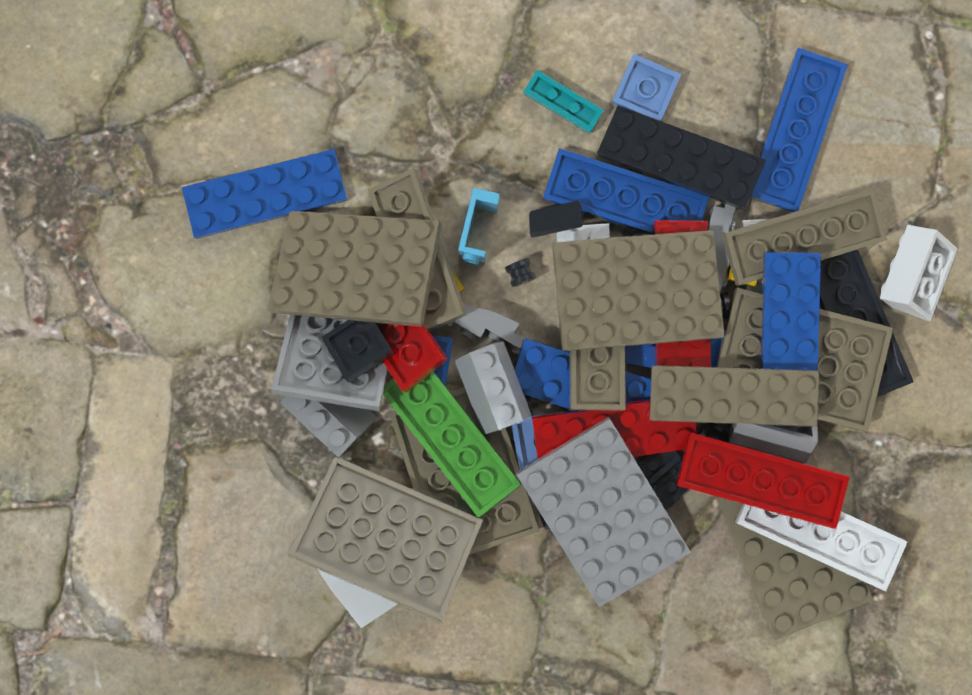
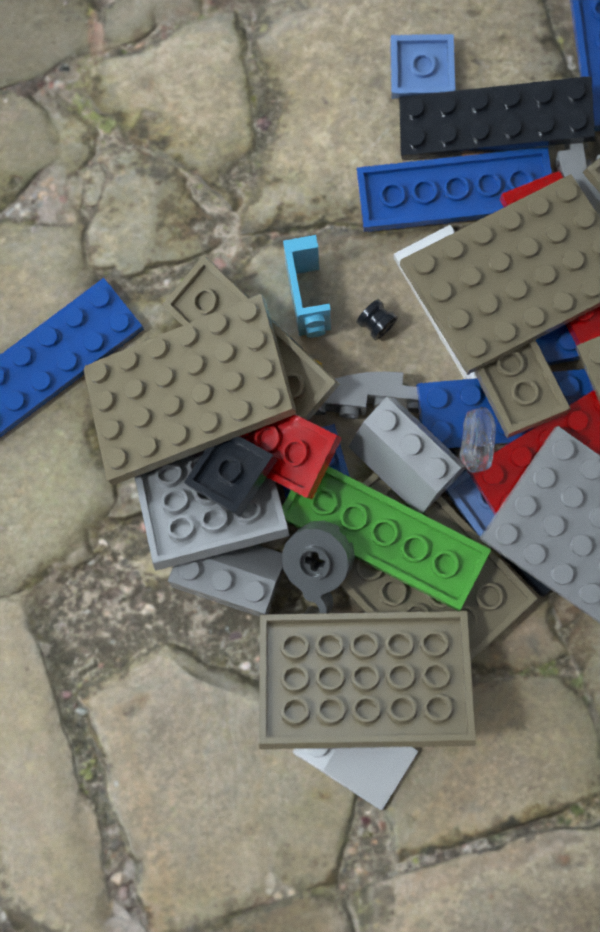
camera: 20 degrees left, 10 degrees down
(392, 438) = (314, 577): none -> dark grey piece
(547, 402) = (478, 440): none -> clear plate
(556, 219) = (389, 242): black slope -> none
(563, 102) = (337, 118): teal plate -> none

